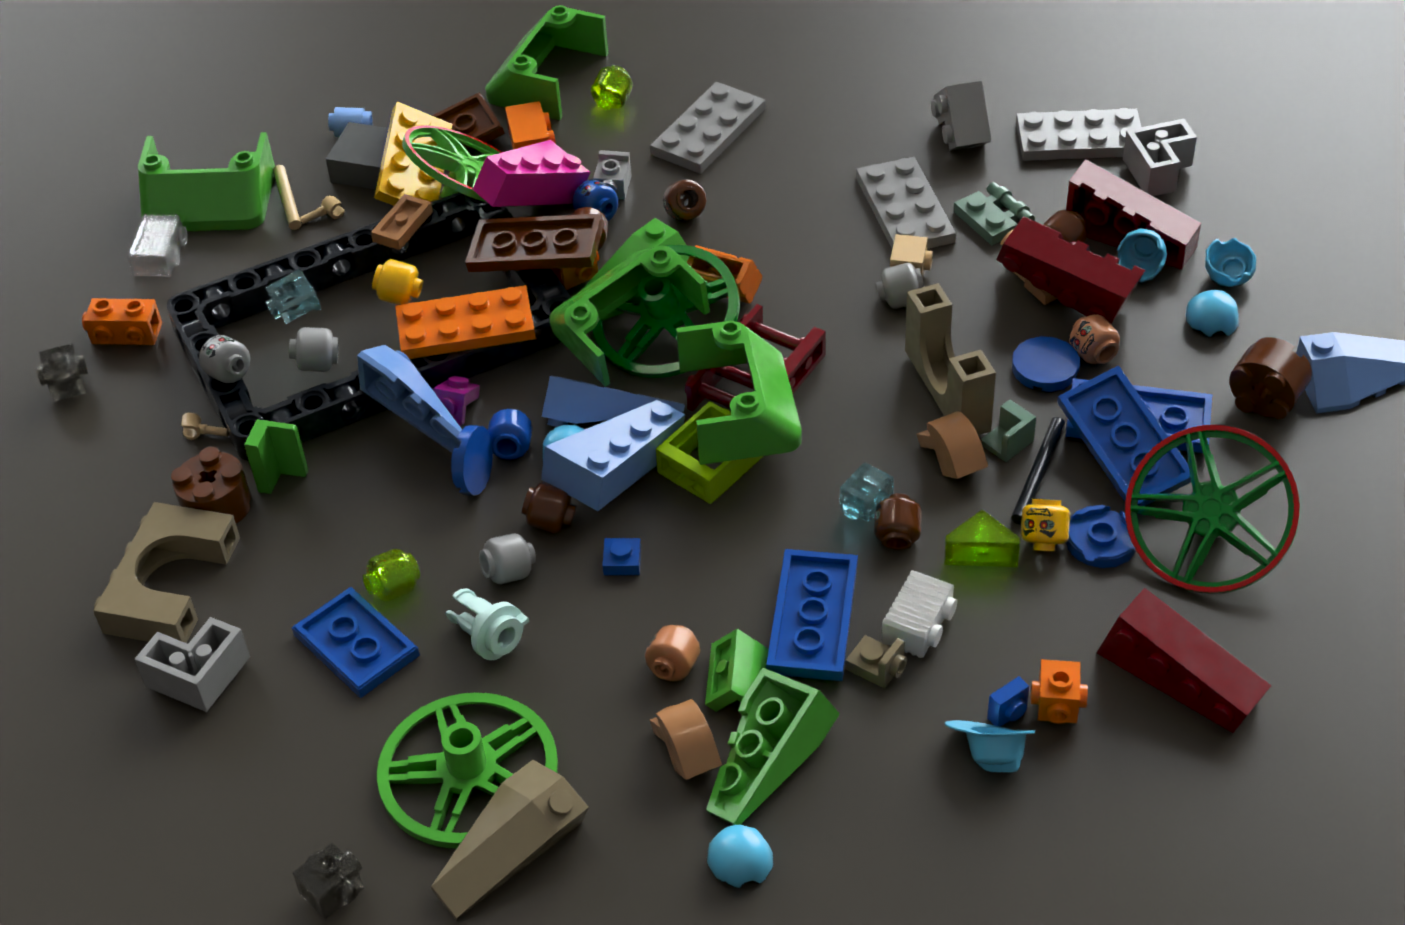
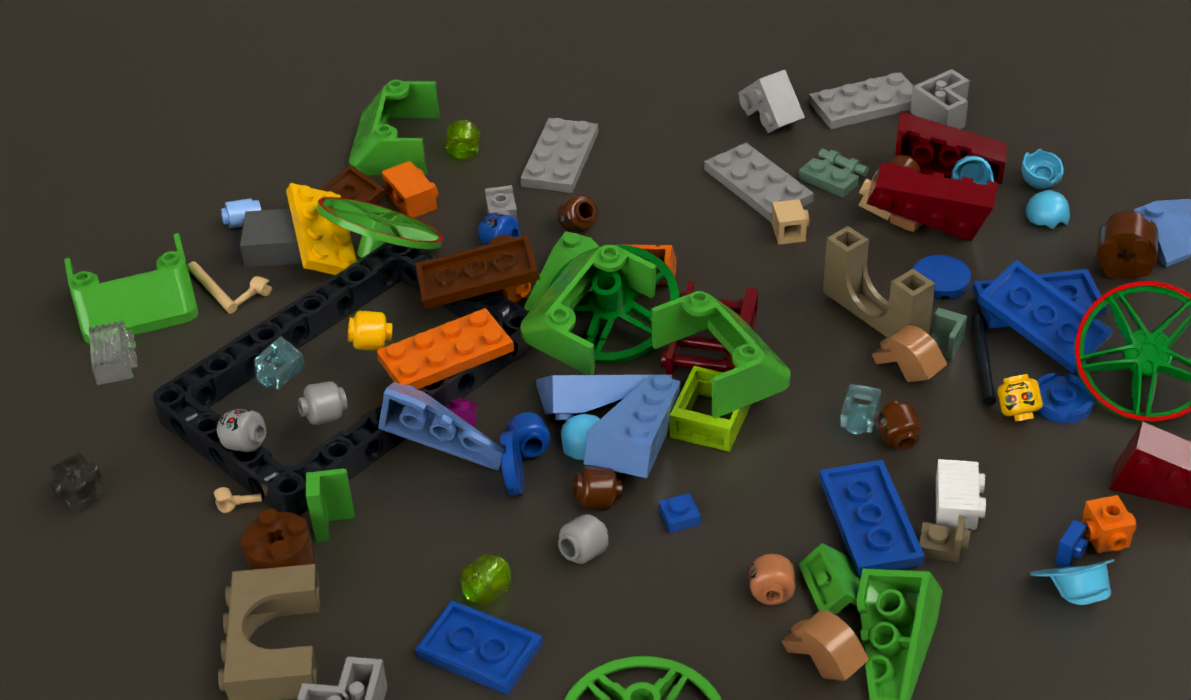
camera: 20 degrees left, 5 degrees down
(122, 321) = (111, 425): orange brick -> none
(401, 222) = (344, 281): medium nougat plate -> none
(494, 629) = (608, 599): light aqua piece -> none
(530, 176) = (444, 220): dark pink wedge -> none
(897, 282) = (794, 242): light grey head -> none
(982, 543) = (978, 425): clear neon green slope -> none
(1094, 339) = (973, 248): nougat head -> none

